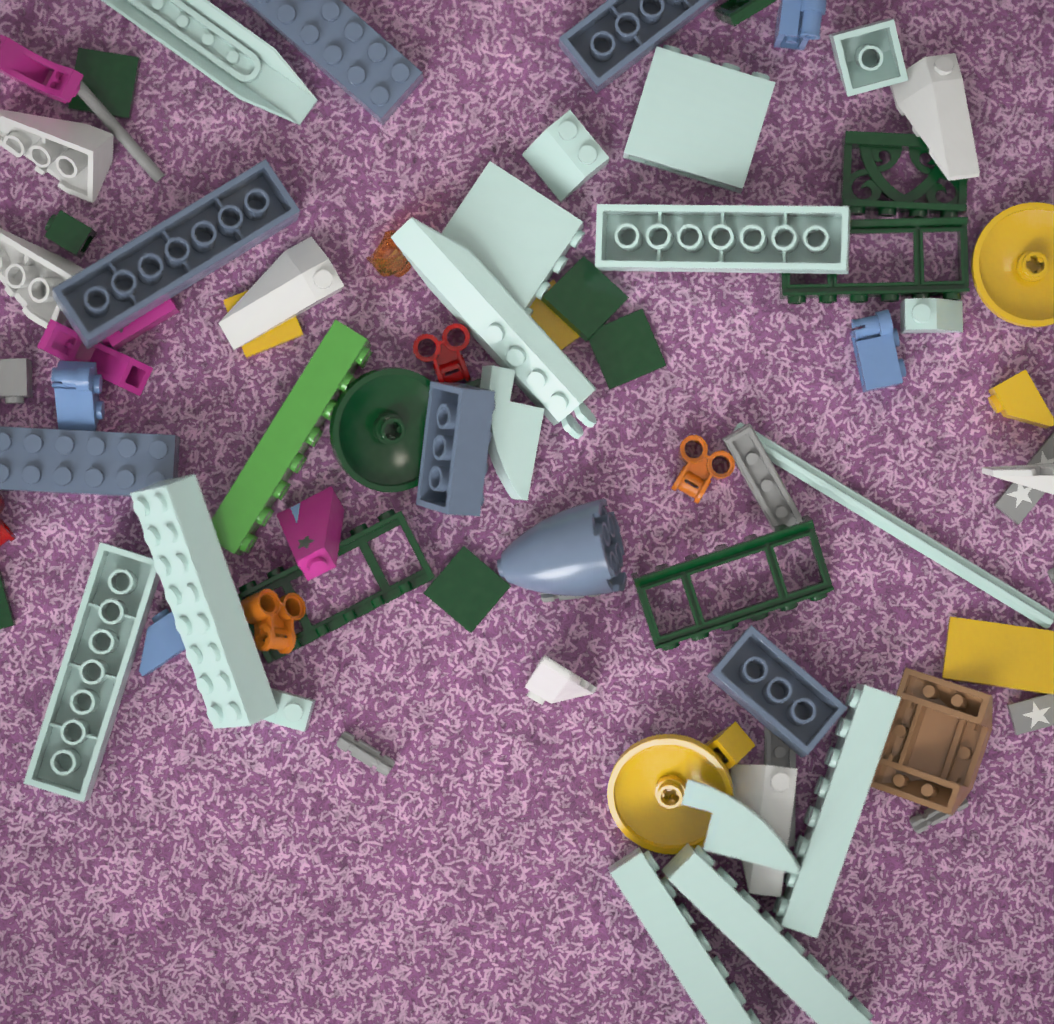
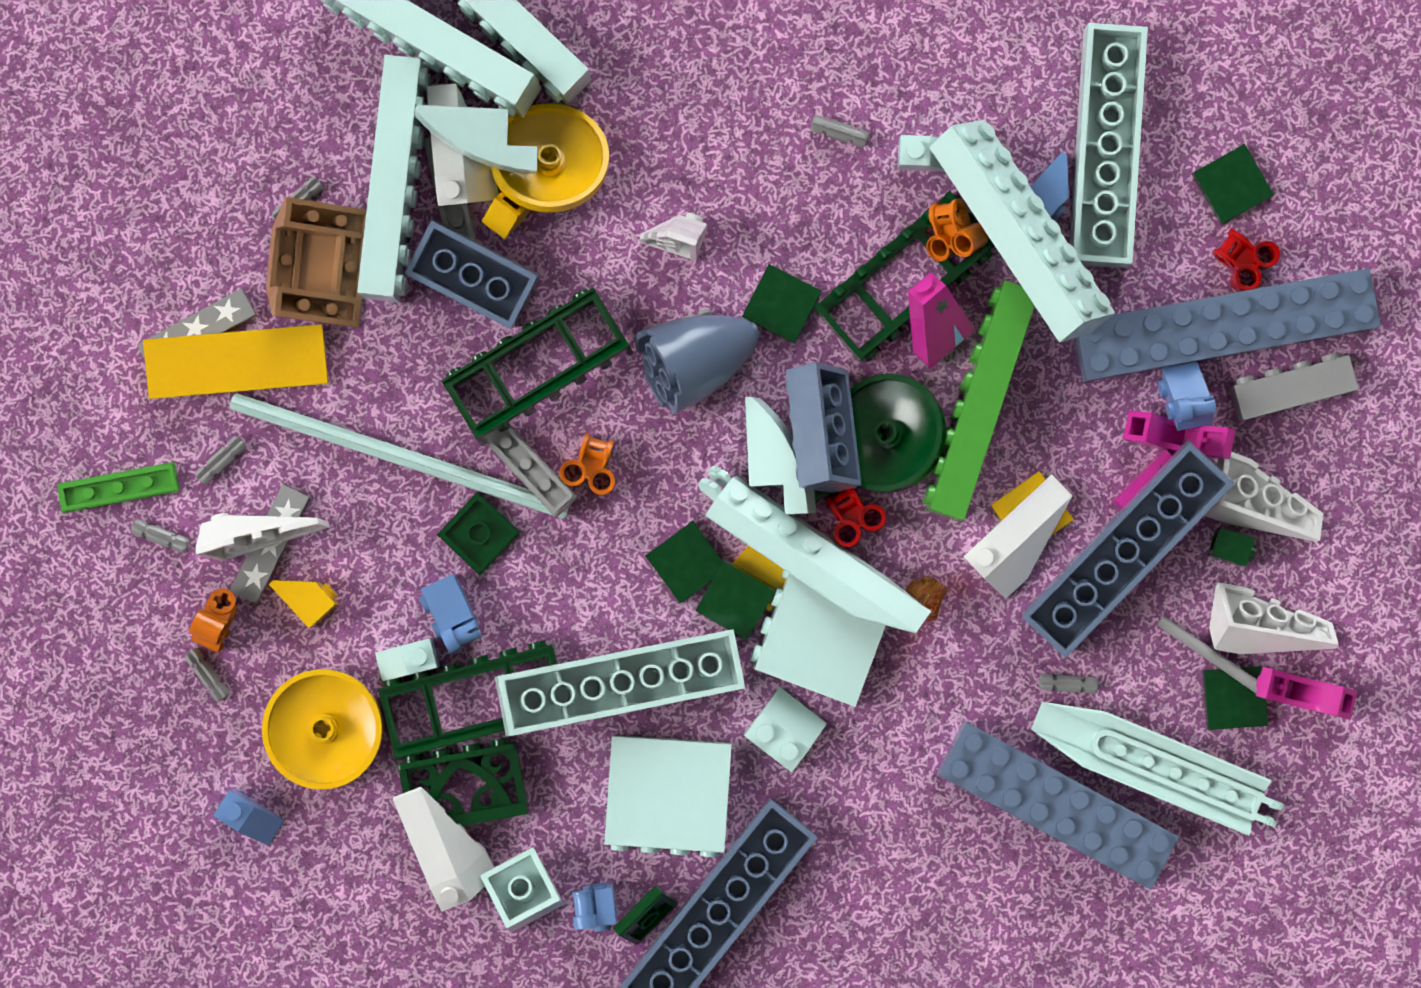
camera: 165 degrees right, 0 degrees up
(268, 136) = (1068, 683): none -> light grey axle
(830, 427) = (478, 533): none -> dark green tile

